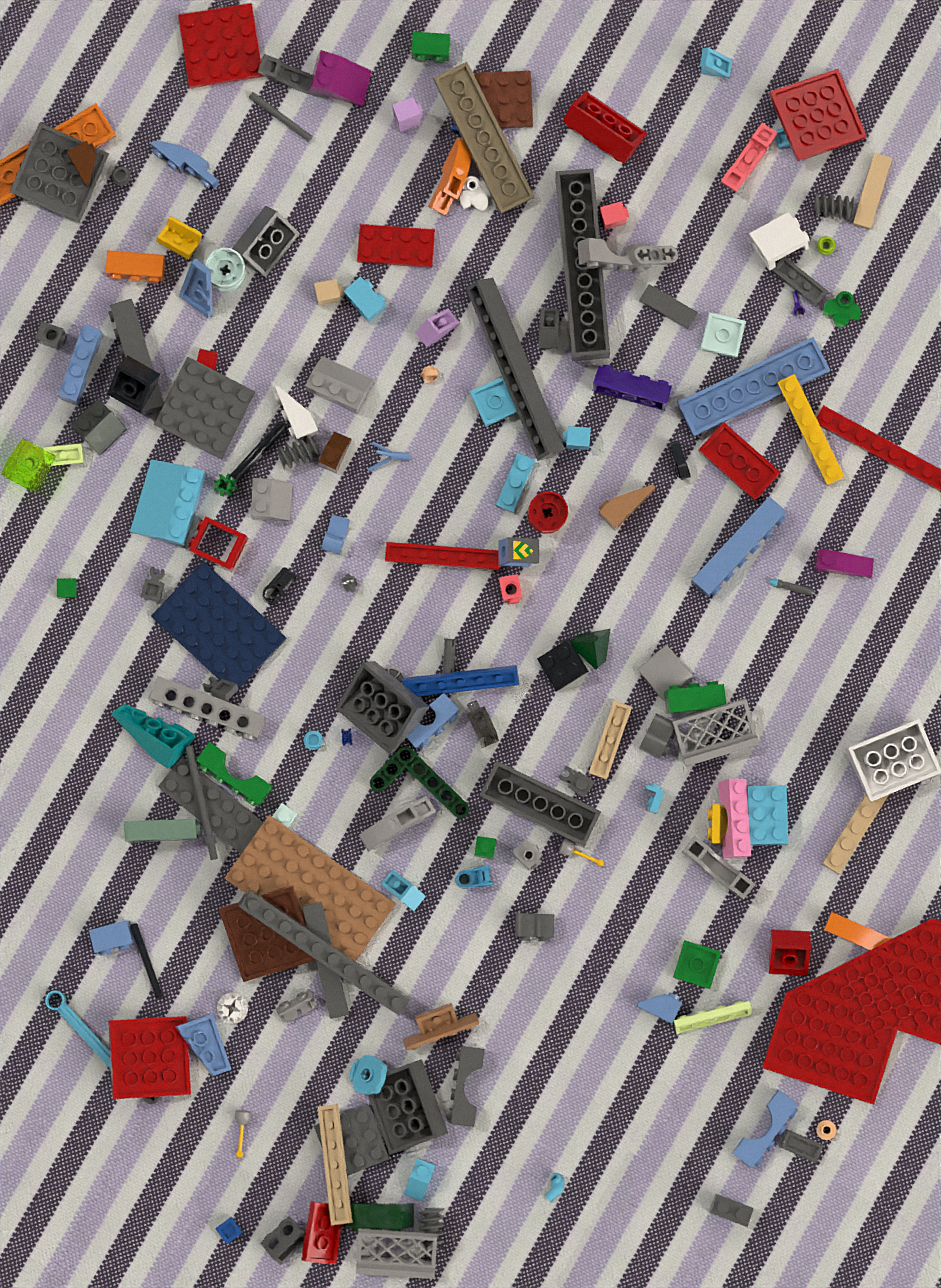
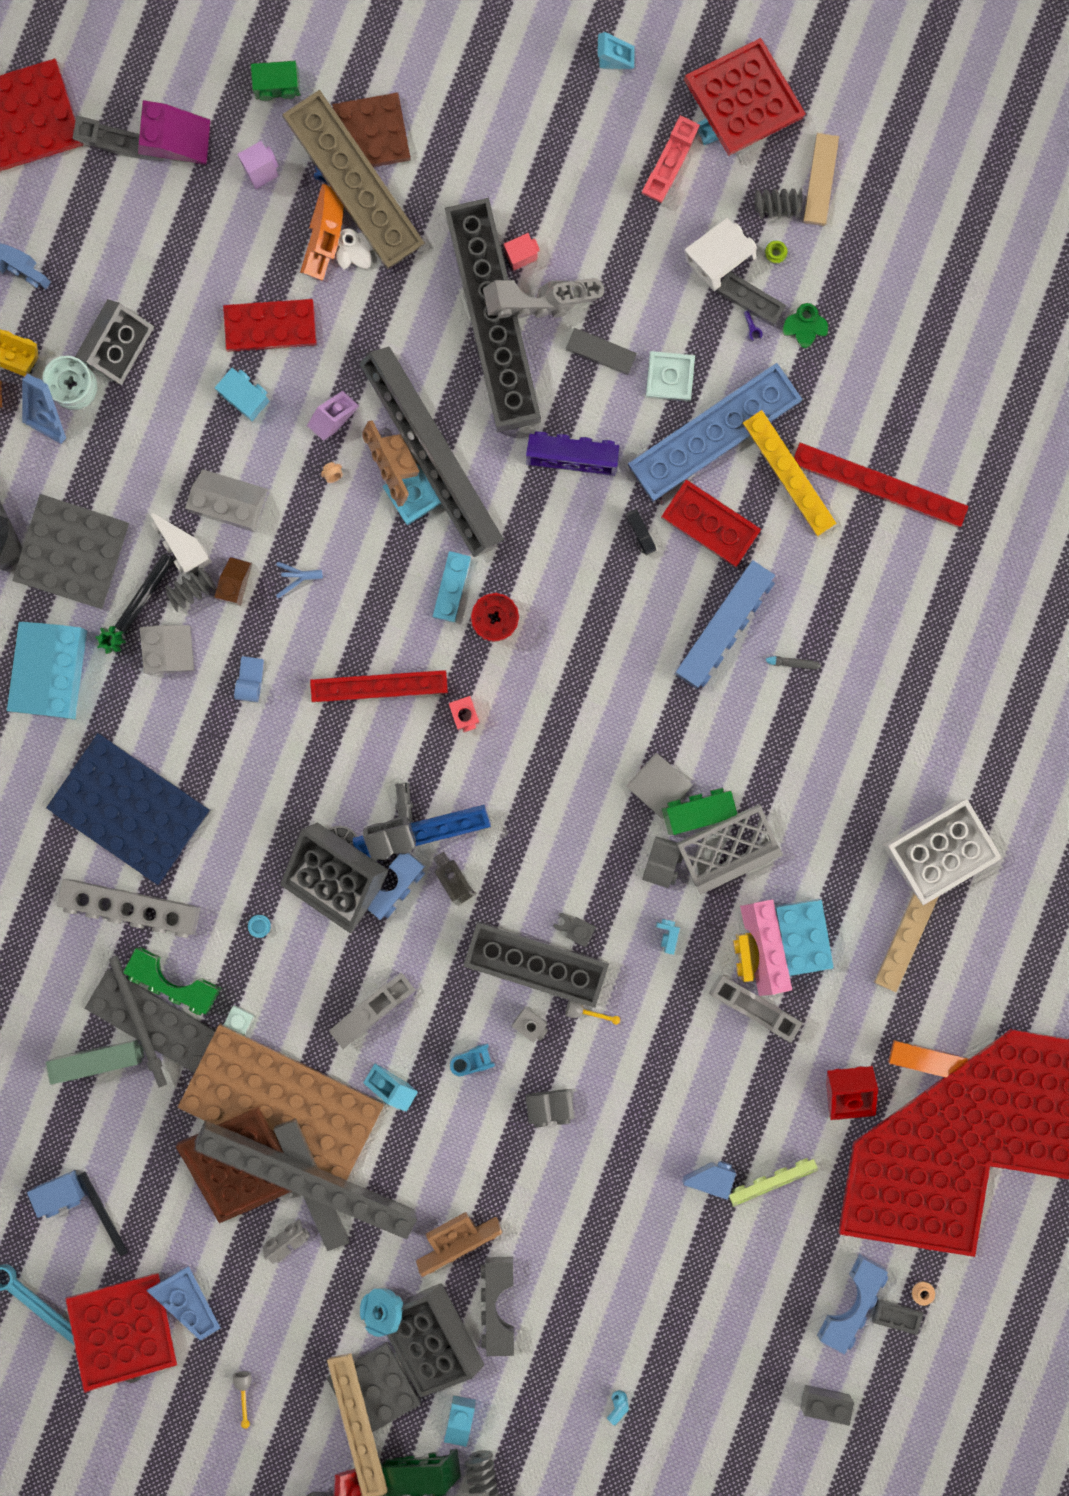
camera: 15 degrees left, 5 degrees up
(153, 588) = (43, 775): dark grey plate -> none
(159, 739) = (76, 951): teal wedge -> none
(207, 358) = (67, 492): red slope -> none
(222, 689) = (140, 884): dark grey plate -> none
(235, 552) = (134, 717): red window -> none
(240, 1003) = (220, 1249): white gear -> none
(280, 584) = (193, 747): black piece -> none
(281, 117) = (112, 191): dark grey bar -> none
(328, 292) = (197, 391): tan brick -> none
(347, 737) = (297, 917): clear blue bush -> none
(349, 583) = (274, 734): dark grey plate -> none
(422, 778) = (394, 954): dark green beam -> none
(434, 681) = (389, 838): none -> dark grey brick
(482, 371) = (392, 459): none -> medium nougat bracket
(485, 847) = (479, 1024): green brick -> none
(518, 552) = (467, 669): piece -> none
(549, 328) = (464, 397): dark grey slope -> none
(562, 665) = (538, 795): black plate -> none
(577, 438) = (516, 523): medium azure brick -> none
(593, 646) = (570, 767): dark green slope -> none
(604, 127) = (494, 147): red slope -> none
(610, 740) = (607, 875): tan plate -> none
(622, 506) = (579, 599): medium nougat slope -> none
(697, 964) = (746, 1123): green plate -> none
(843, 563) = (849, 626): magenta slope -> none

